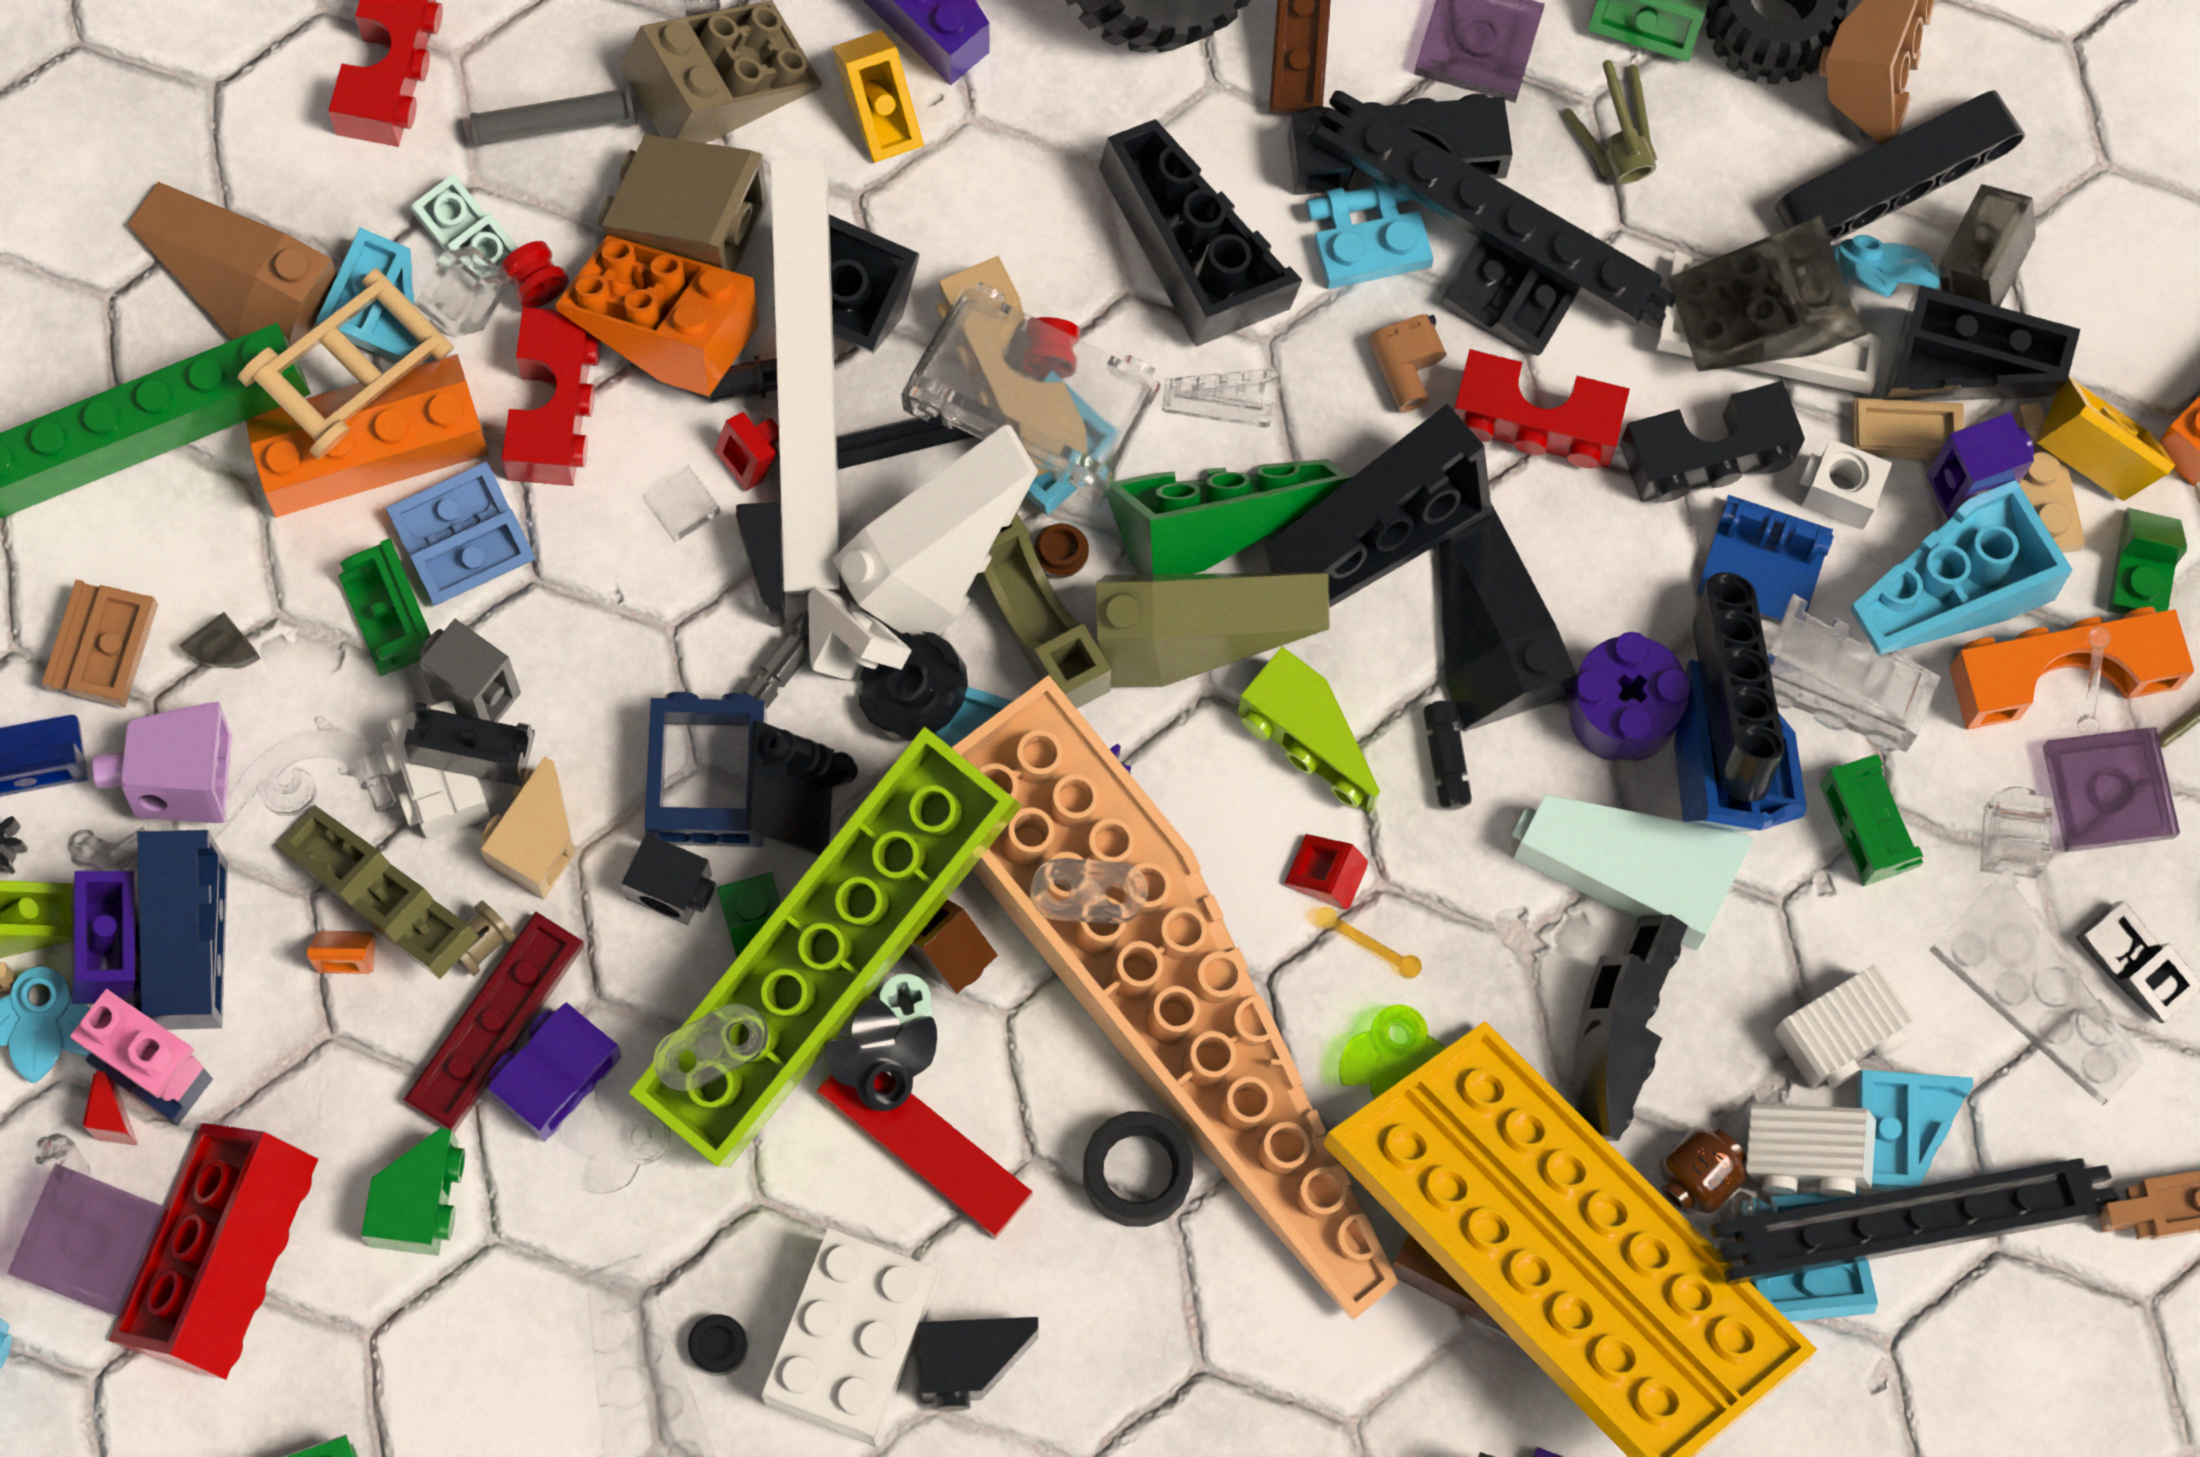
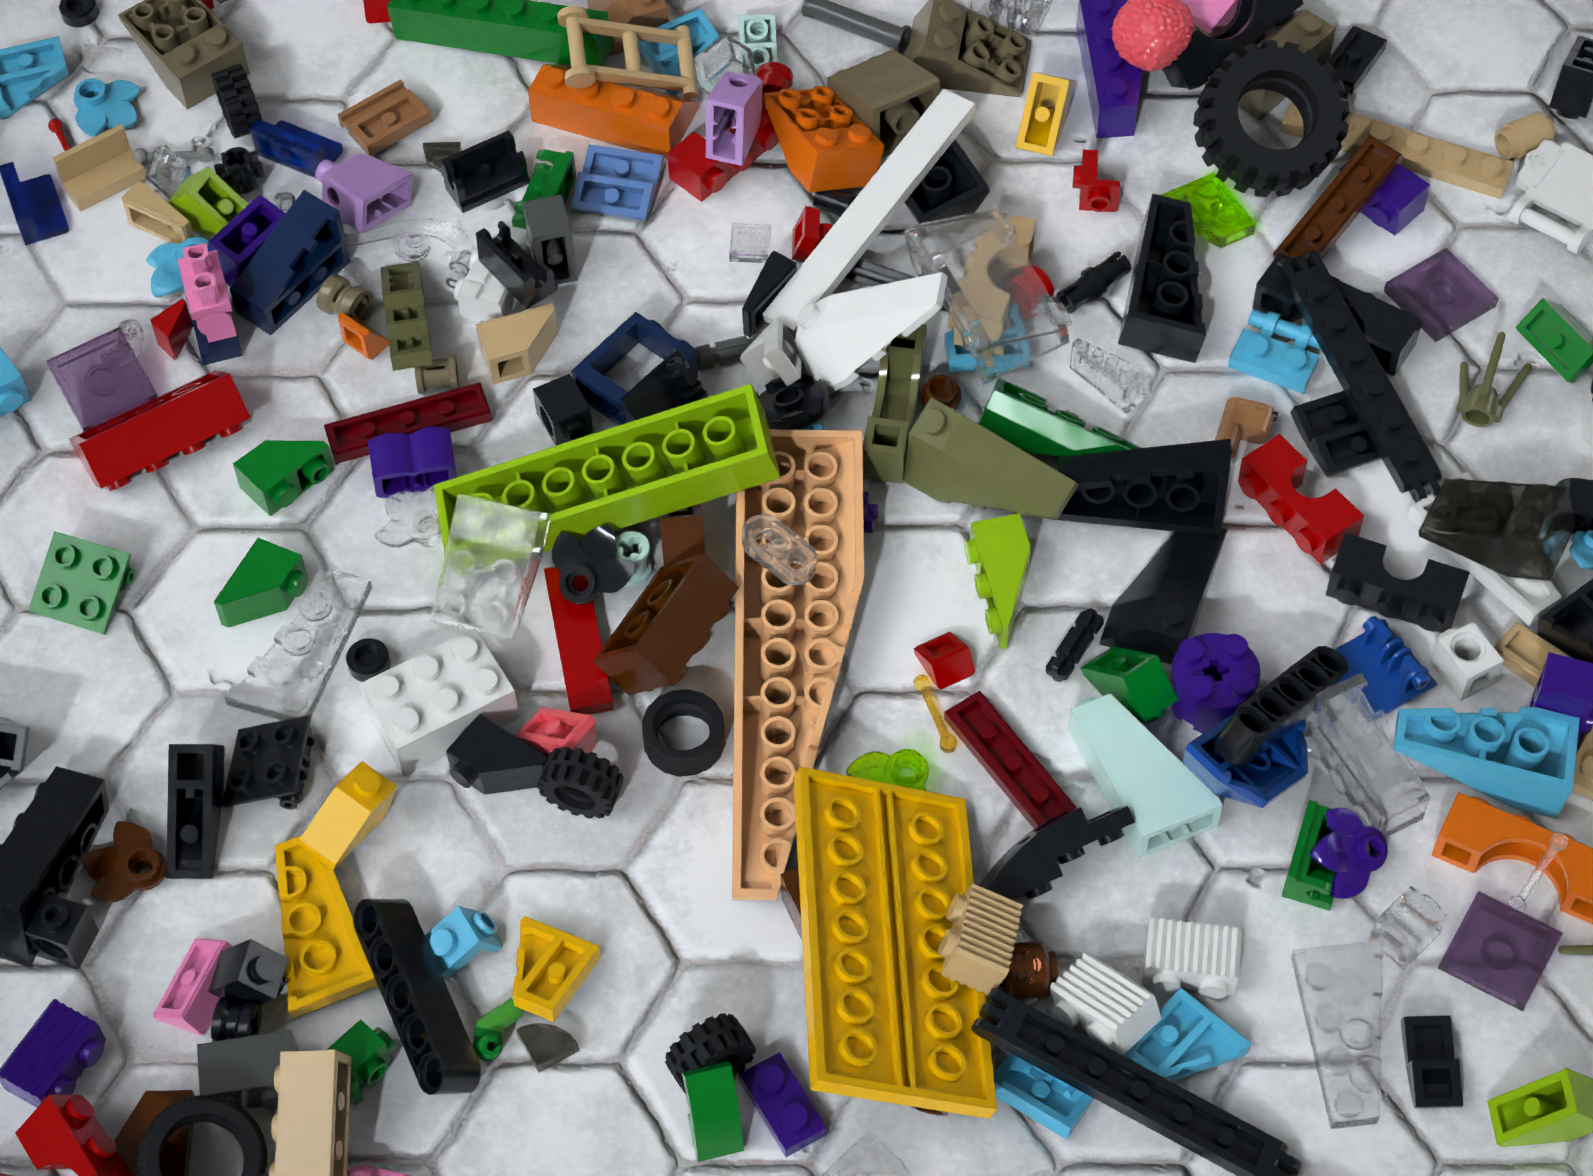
camera: 45 degrees right, 15 degrees down
(281, 923) = (339, 296): none -> dark tan wheel
(294, 633) = (484, 172): none -> black hinge
(523, 1347) = (261, 584): none -> green slope
(551, 350) = (737, 102): none -> lavender torso
(712, 1046) = (495, 479): clear plate -> none
(795, 1147) = (489, 565): none -> clear slope
(998, 156) = (1094, 193): none -> red bracket
(1014, 1278) = (559, 729): none -> coral slope
(1029, 1065) = (667, 625): none -> reddish brown brick
(1094, 1316) = (580, 782): none -> black tyre
(1108, 285) = (1094, 281): none -> black pin
(1151, 90) = (1214, 211): none -> clear neon green wing
(1492, 942) = (1007, 760): none -> dark red tile
(1542, 759) = (1134, 680): none -> green slope
(1655, 1178) = (980, 938): none -> tan brick
(1905, 793) = (1346, 852): none -> dark purple plate

